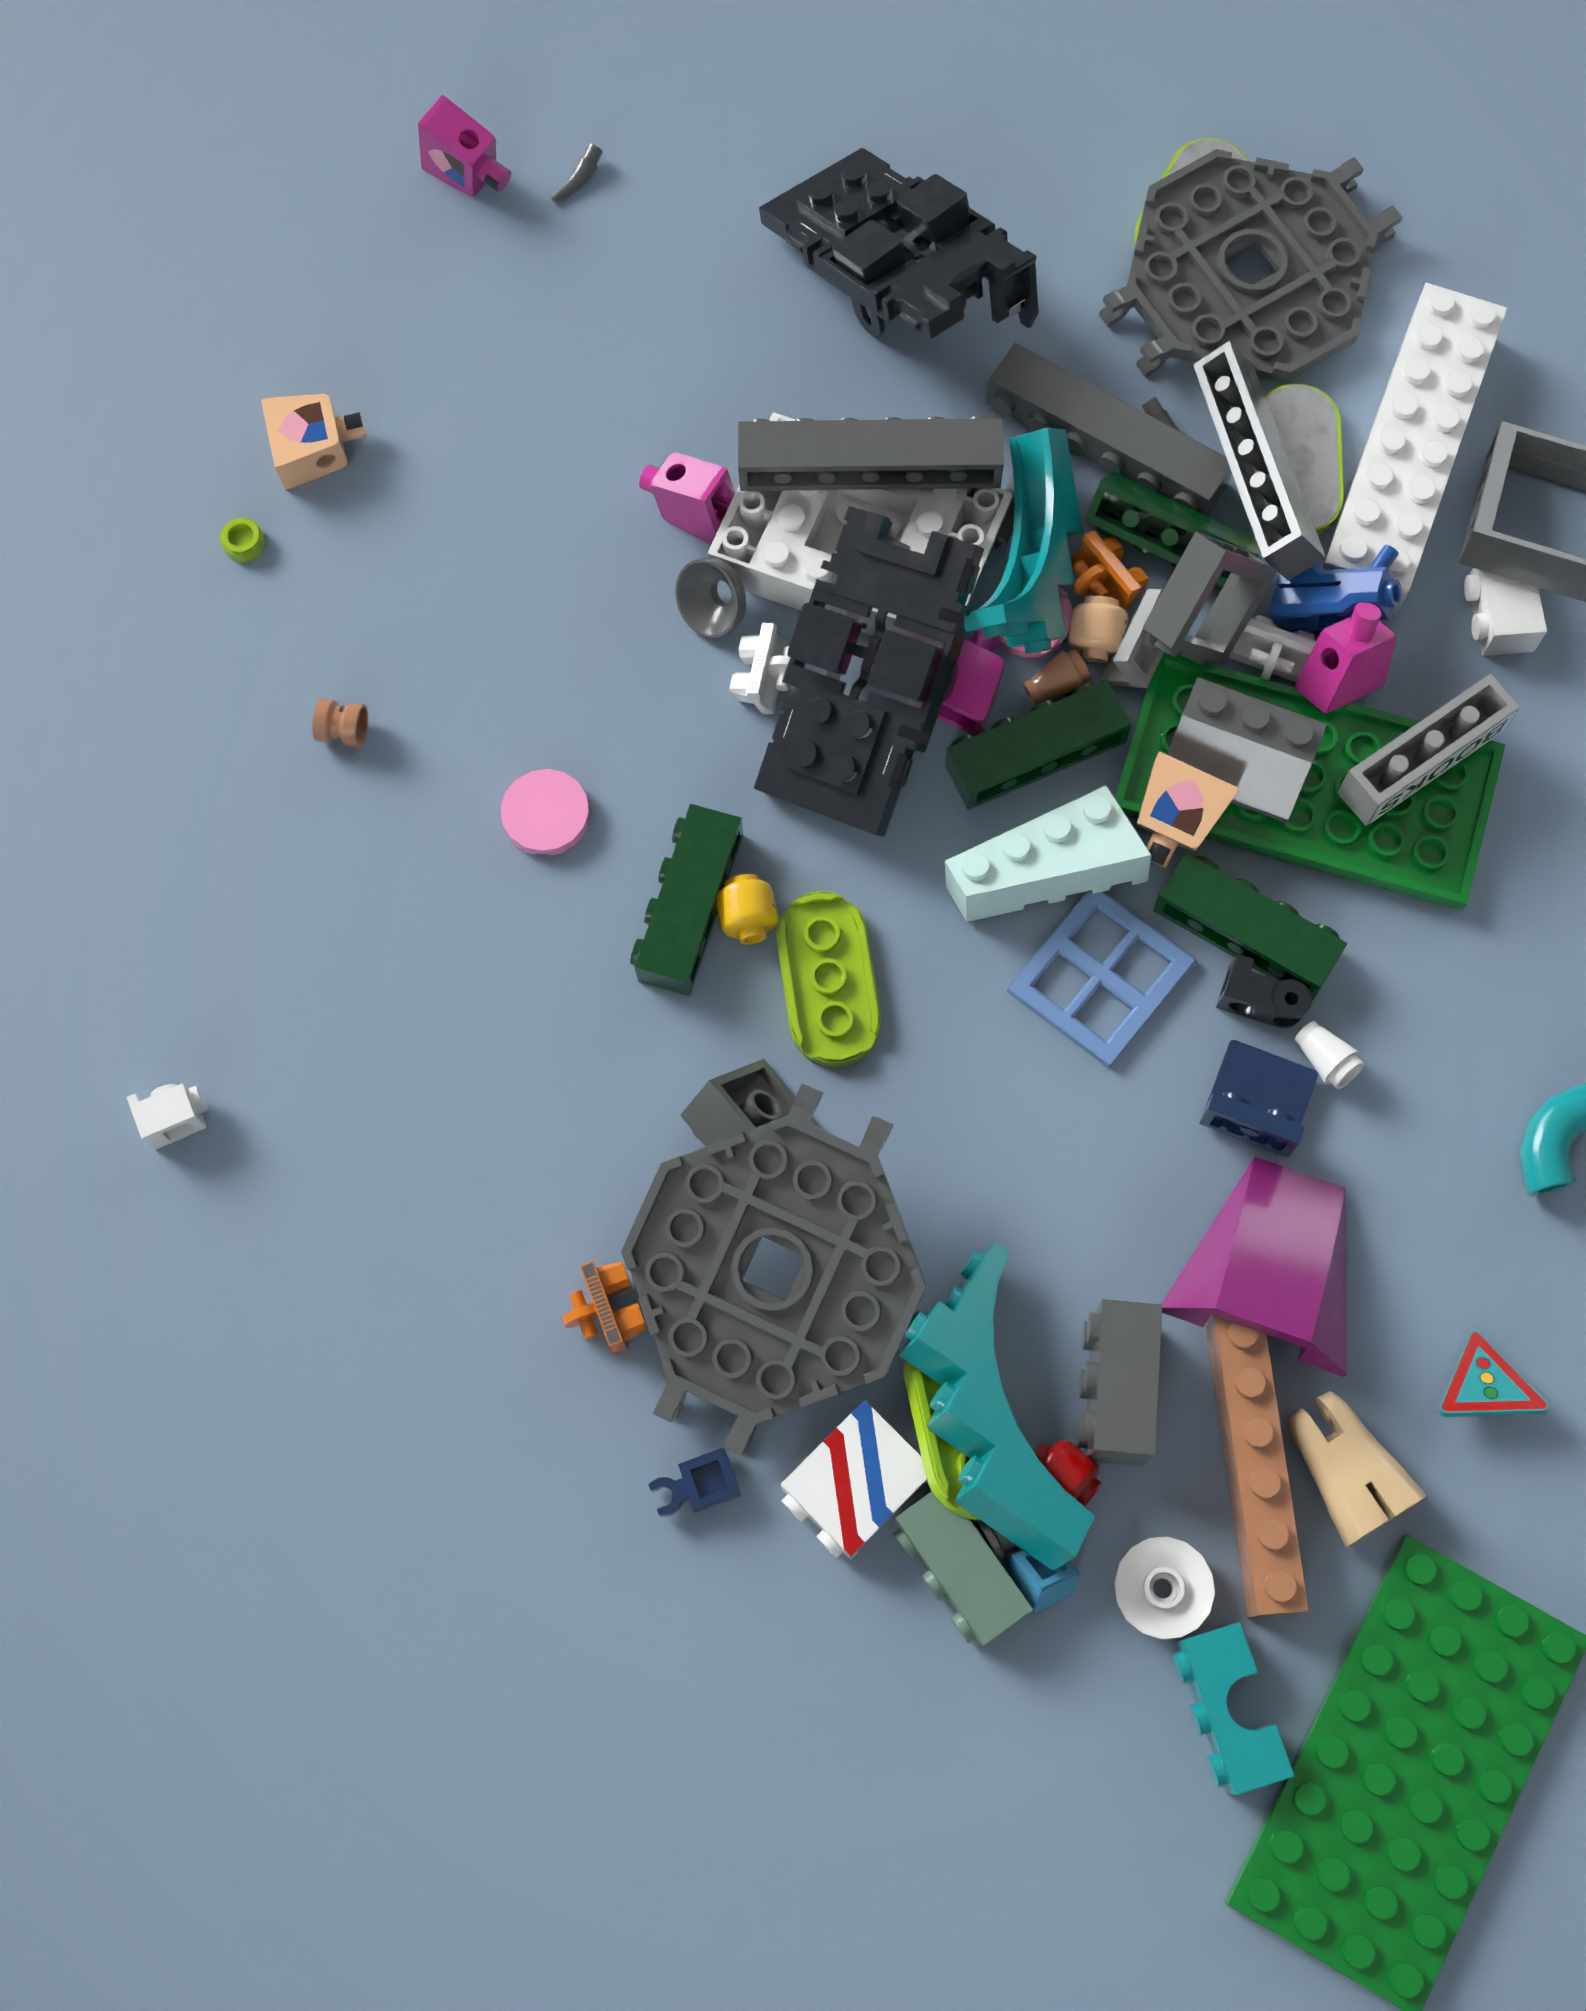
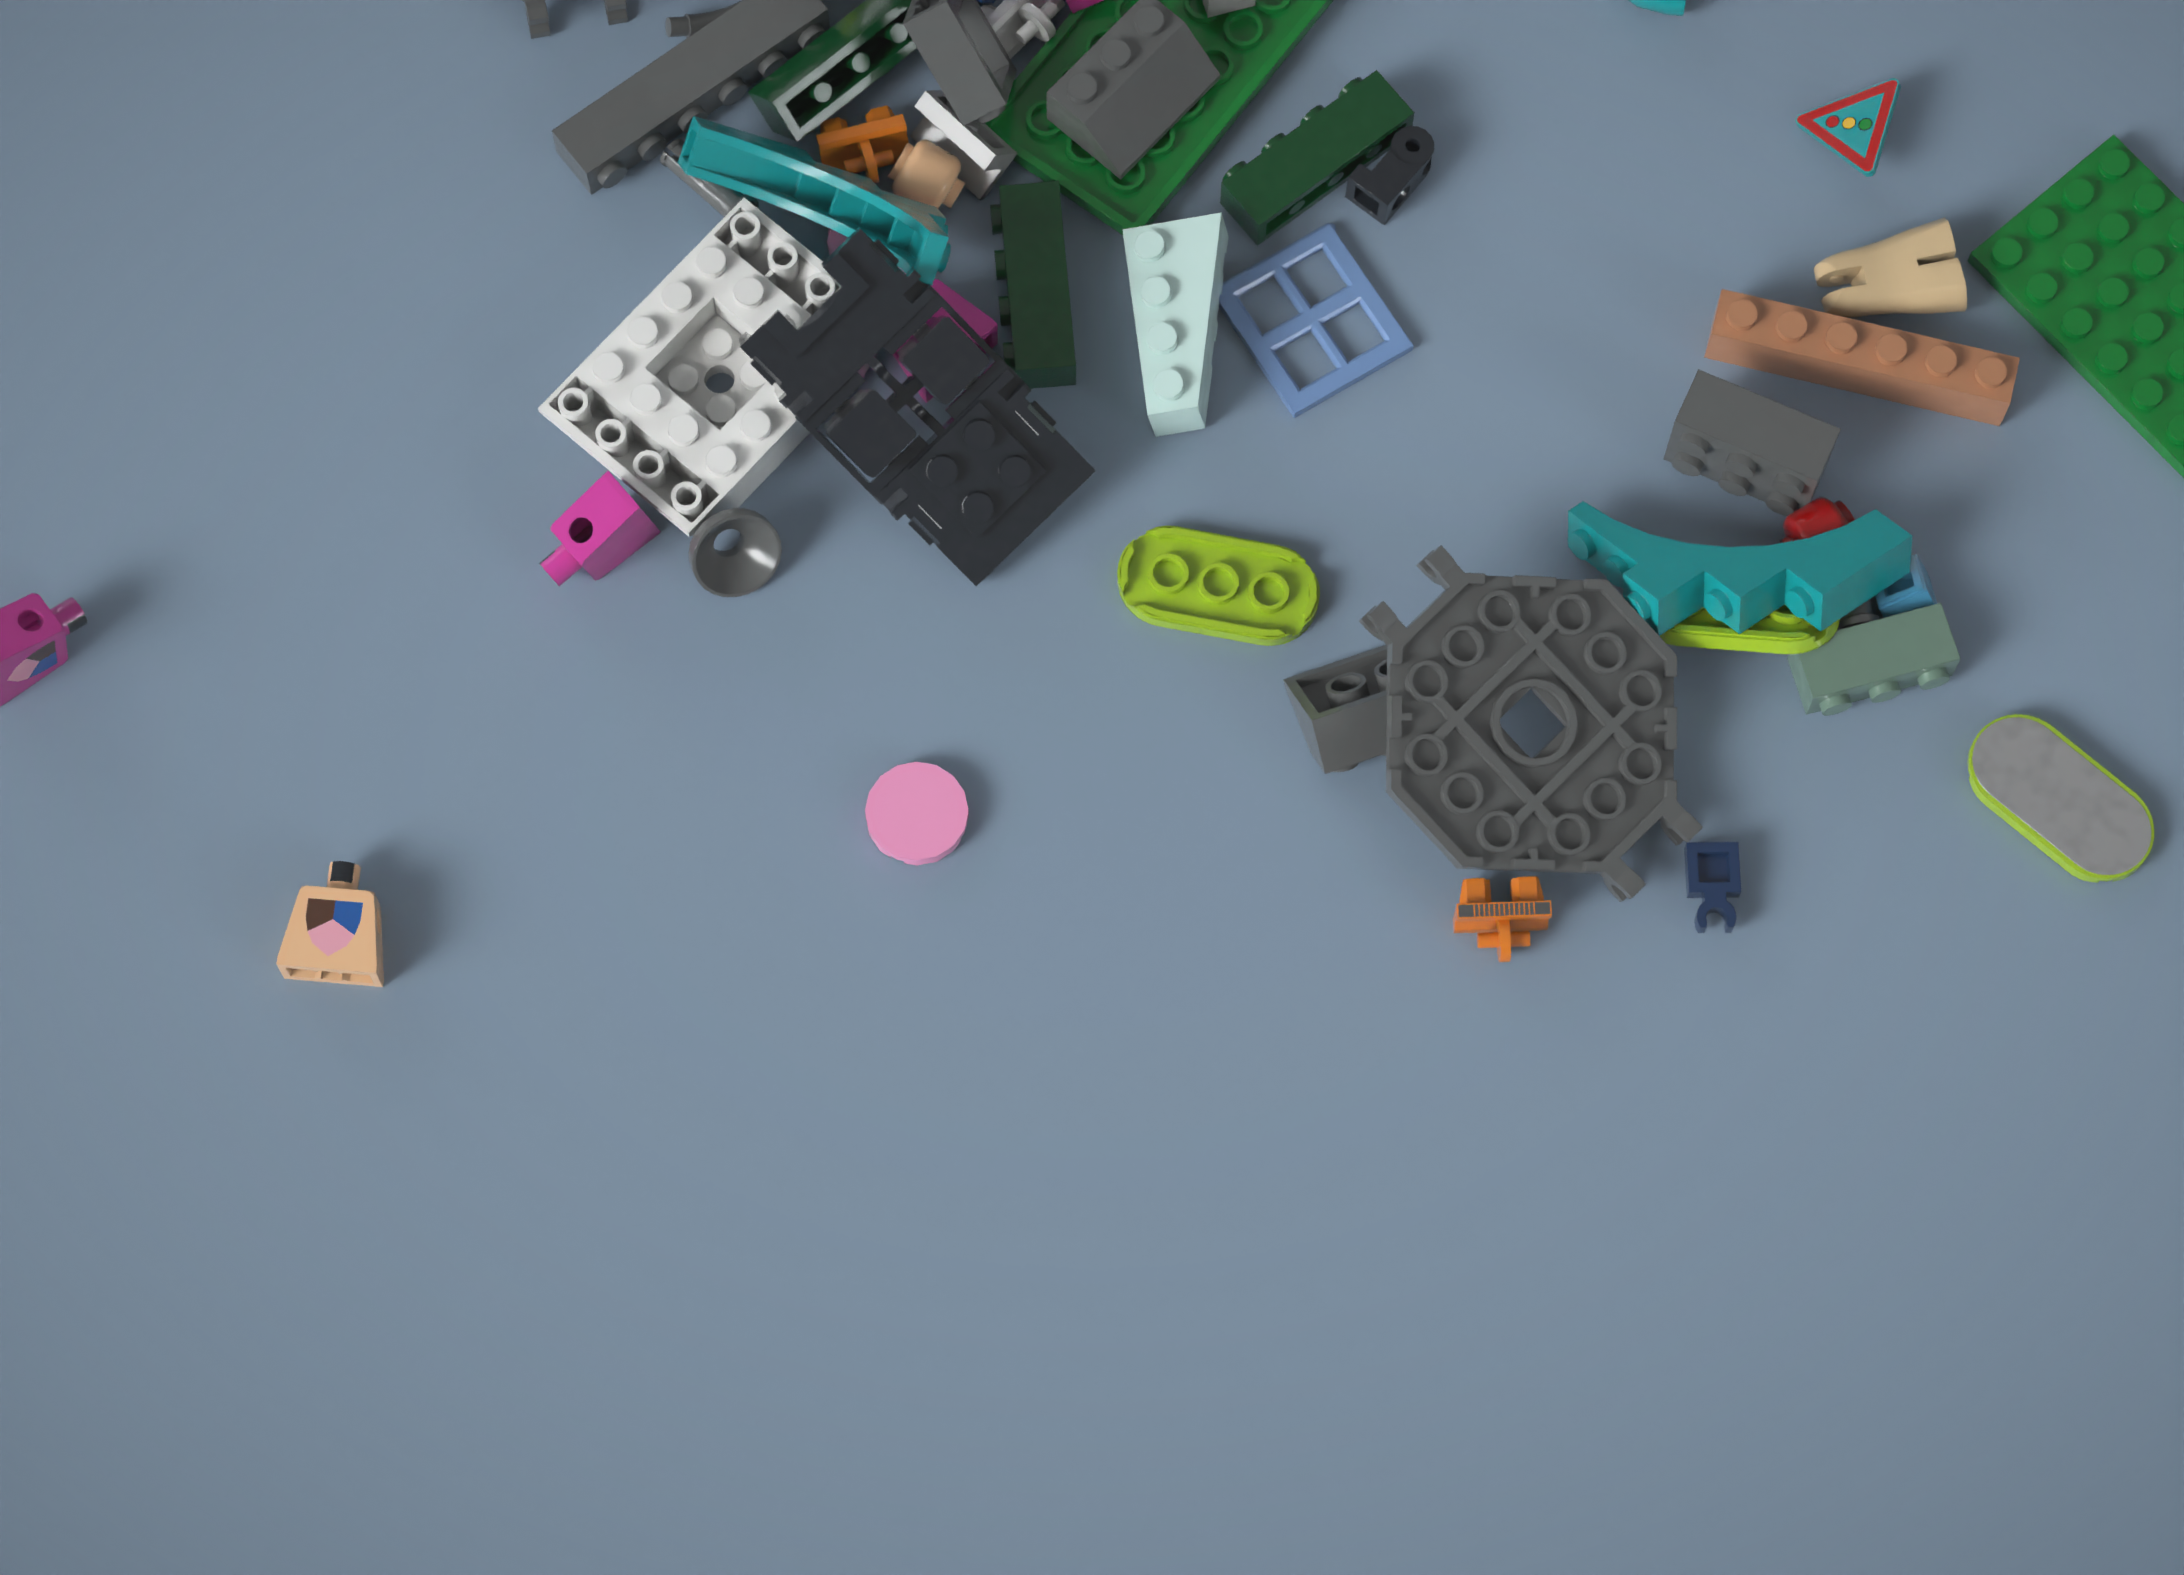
camera: 75 degrees left, 0 degrees up
(169, 1114) = (1130, 1306): white brick -> none
(242, 539) = (435, 1049): lime tile -> none
(336, 722) = (726, 997): nougat wheel -> none
(583, 171) = (93, 523): dark grey helmet -> none
(687, 900) = (1081, 692): dark green brick -> none
(747, 909) = (1114, 637): yellow head -> none
(769, 662) = (816, 519): white hips -> none
(847, 236) = (297, 234): black piece -> none
(854, 1481) = (1763, 728): panel -> none
(870, 454) = (652, 318): dark grey brick -> none
(891, 1789) = (2060, 798): none -> flat silver tile
(1057, 678) = (967, 238): nougat cone -> none
(1180, 807) = (1173, 167): light nougat torso -> none
(1189, 1583) = (1956, 463): white dish -> none
(1240, 1756) = (2040, 470): teal arch -> none
(1260, 1098) = (1501, 217): dark blue bracket -> none
(1274, 1264) = (1672, 268): magenta wedge -> none
(1330, 1056) = (1478, 136): white cone -> none

